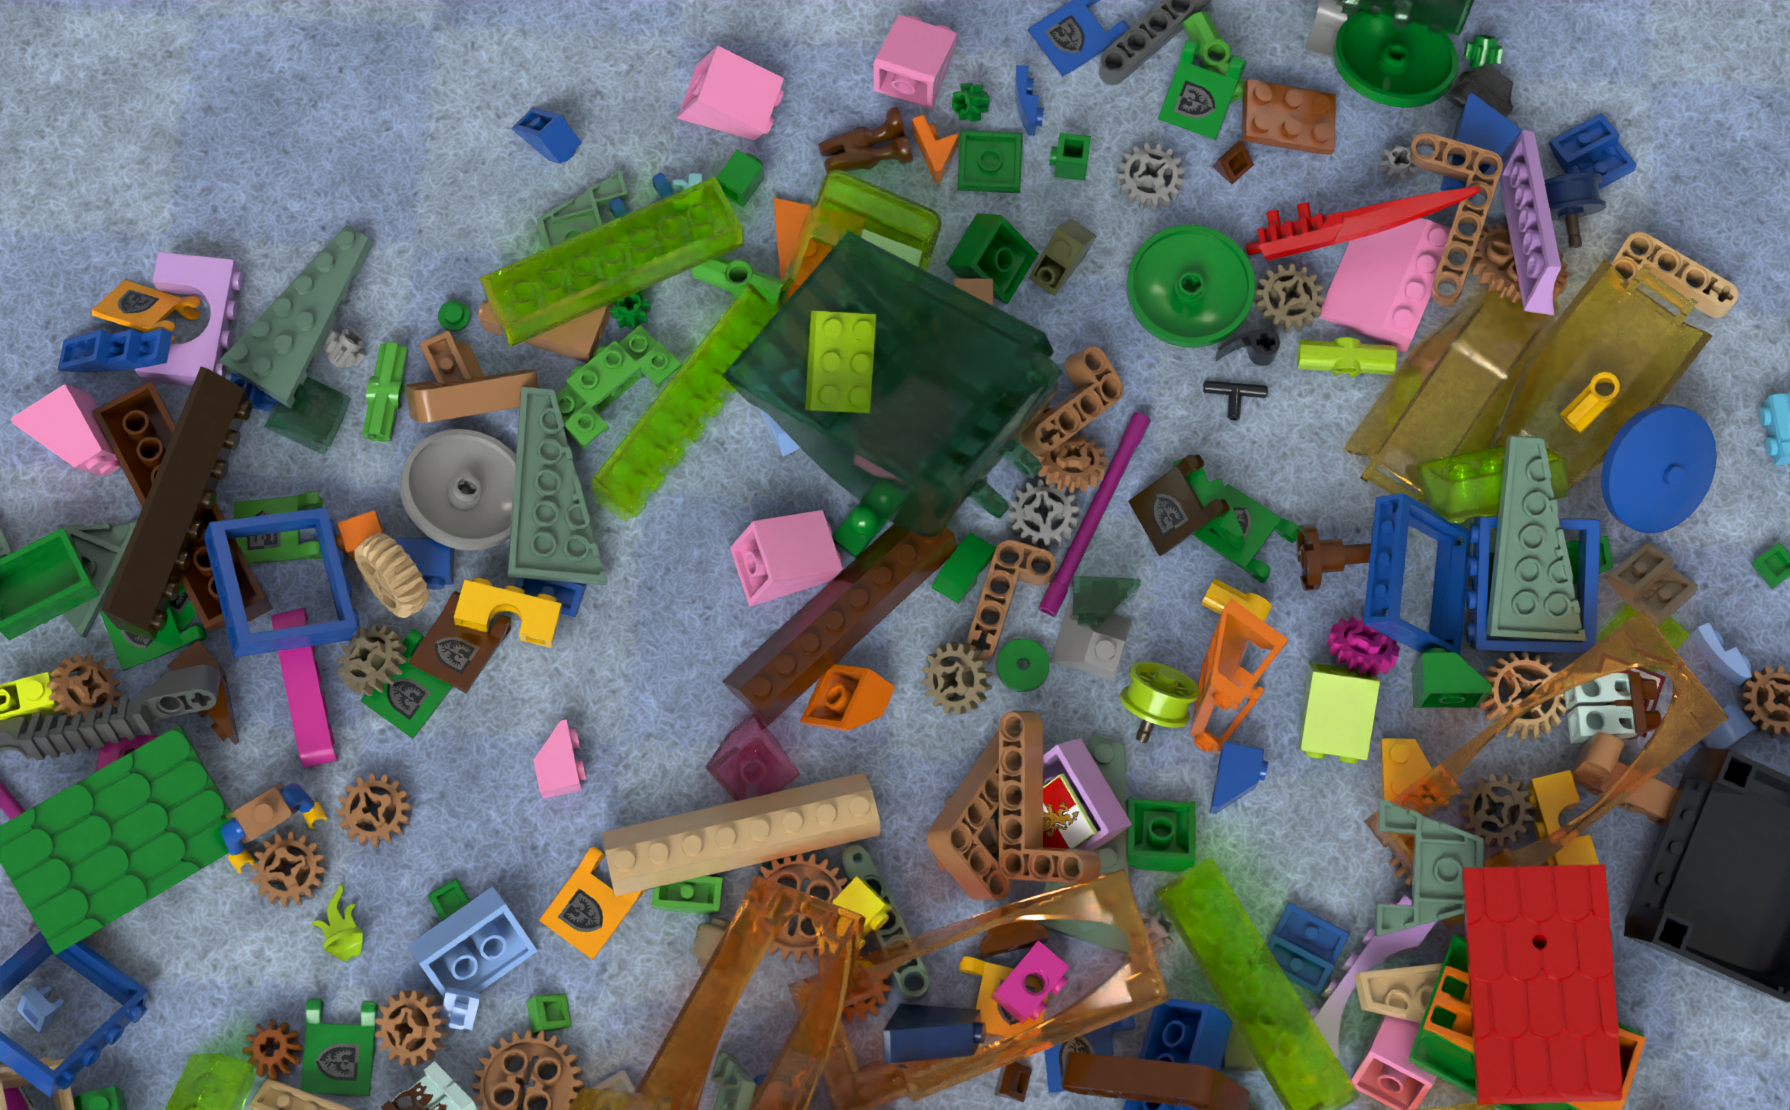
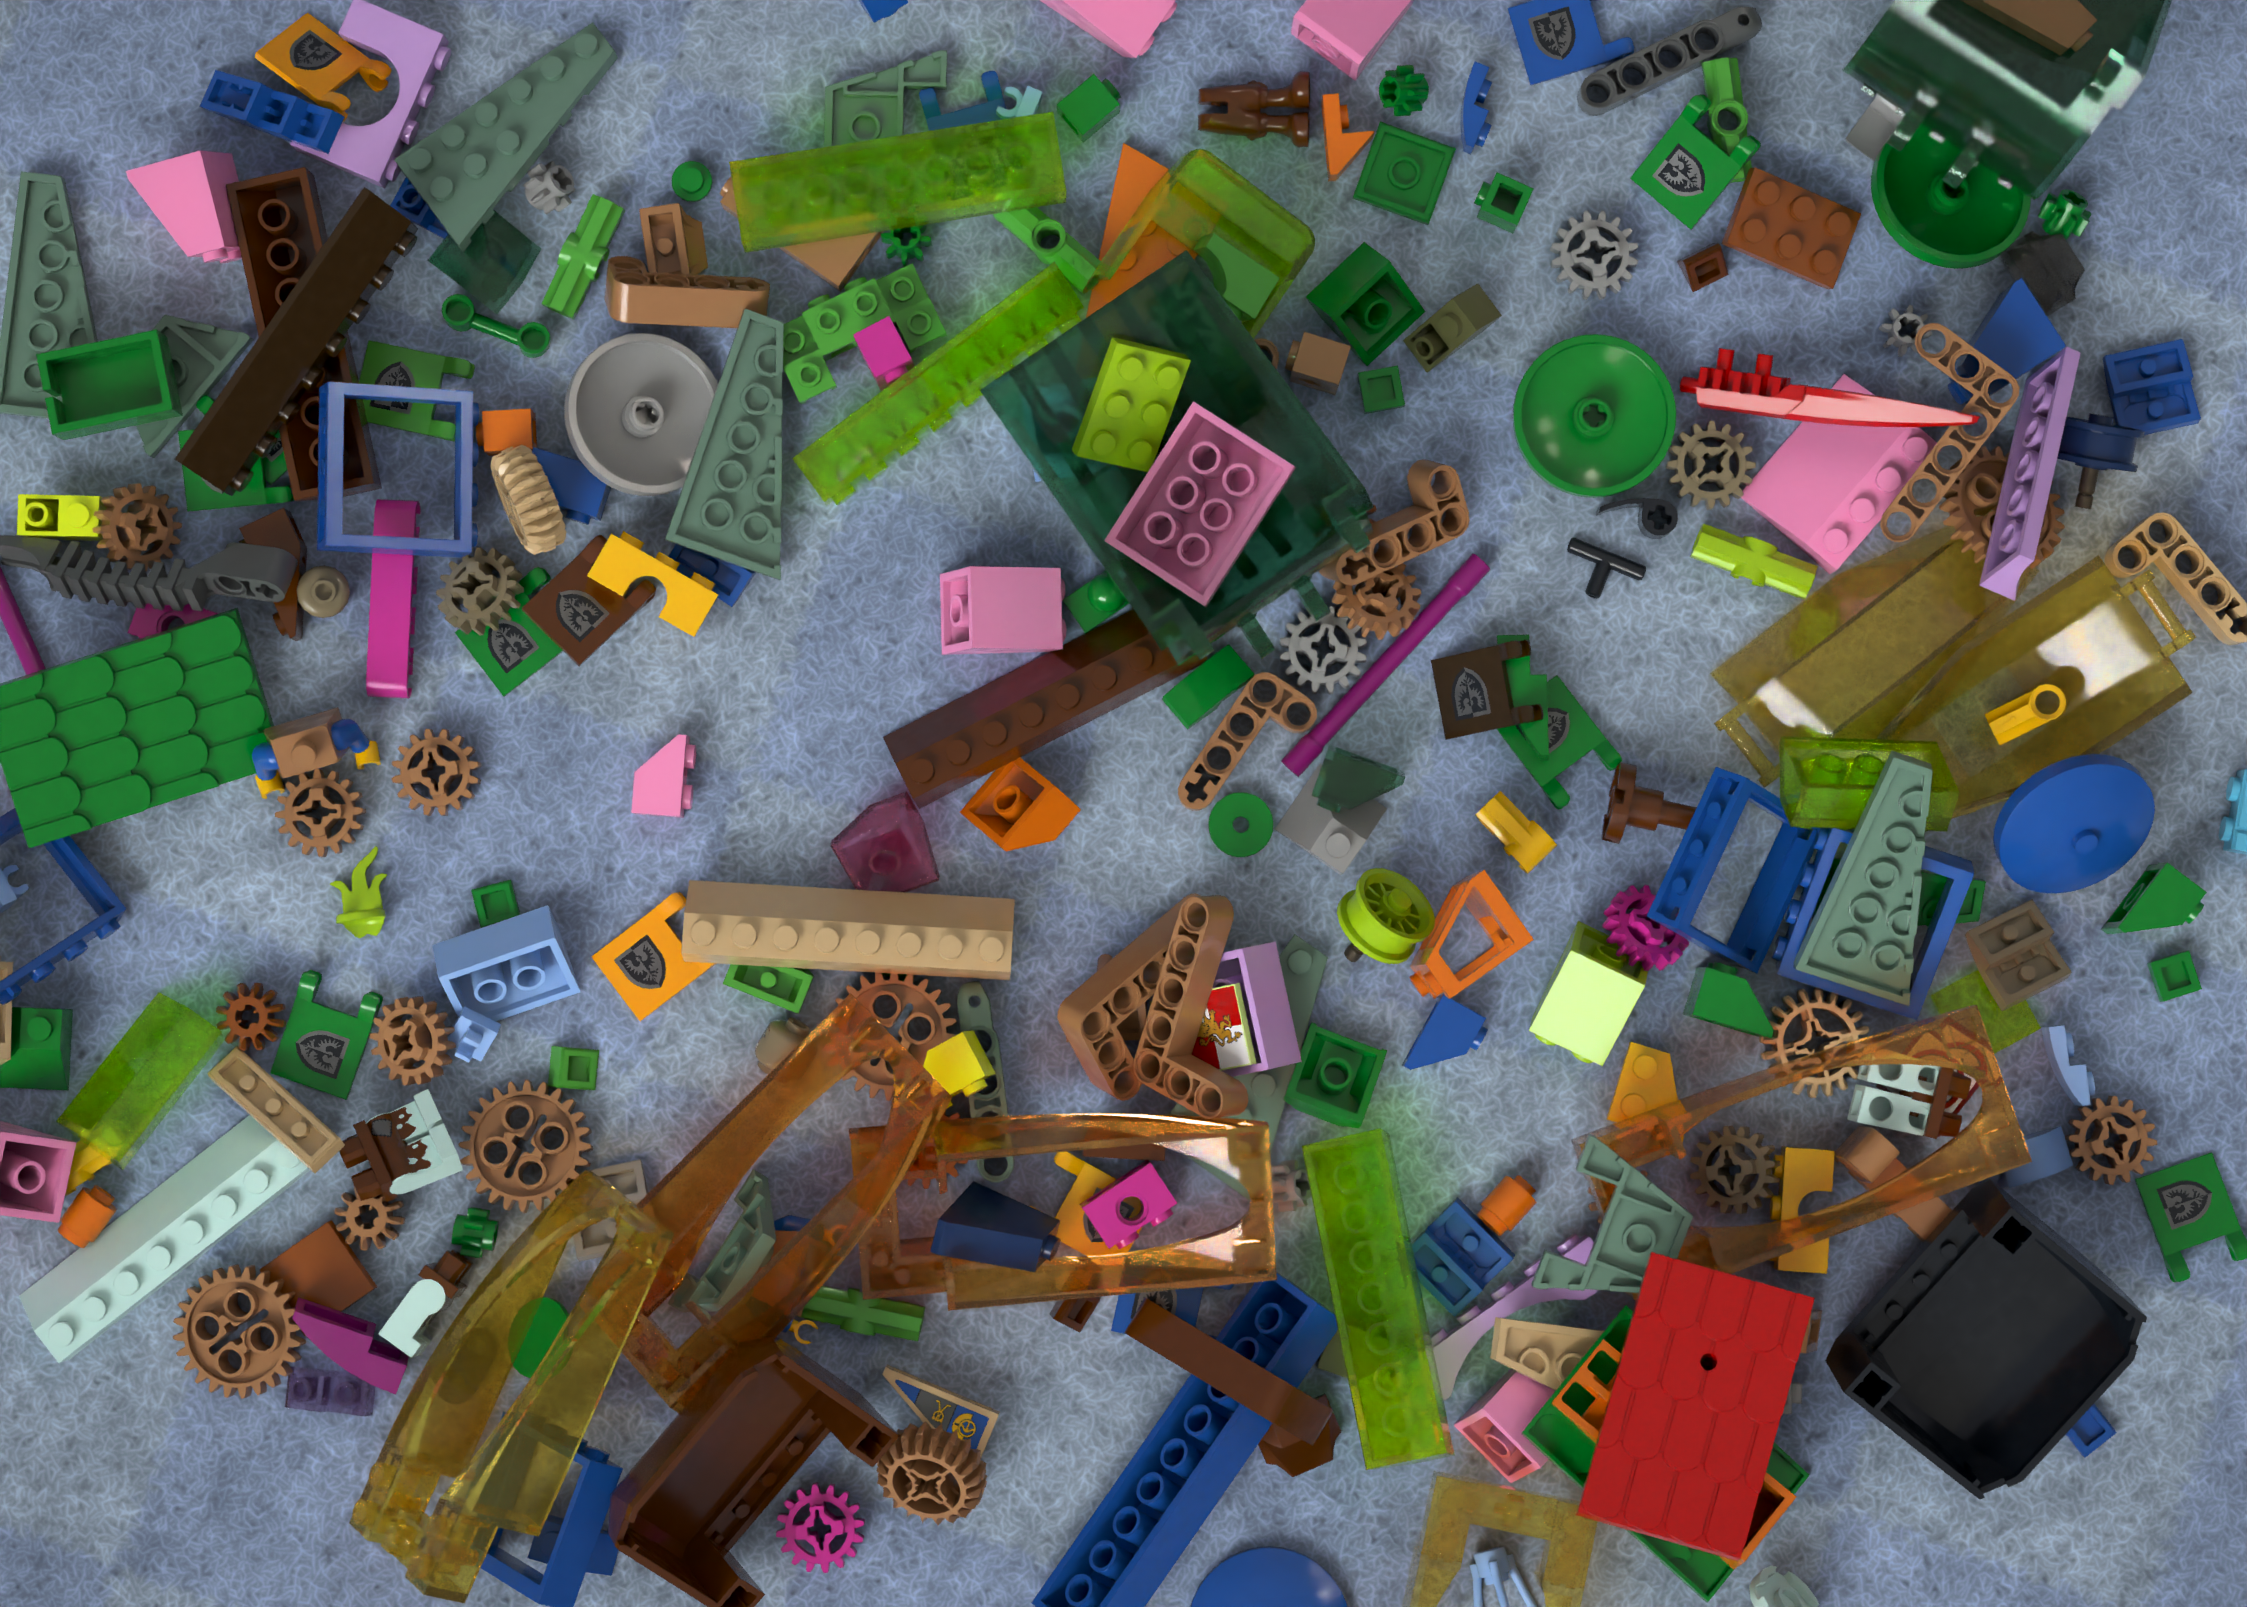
camera: 20 degrees right, 15 degrees up
(246, 696) = (323, 591): none -> dark tan head
(361, 463) = (461, 316): none -> green bar
(636, 387) = (884, 352): none -> dark pink brick
(918, 408) = (1200, 504): none -> bright pink slope
(969, 675) = (1156, 821): dark tan gear -> none
(1027, 311) = (1381, 389): none -> green plate
(1330, 893) = (1507, 1204): none -> orange brick
(1743, 509) = (2157, 900): none -> green slope

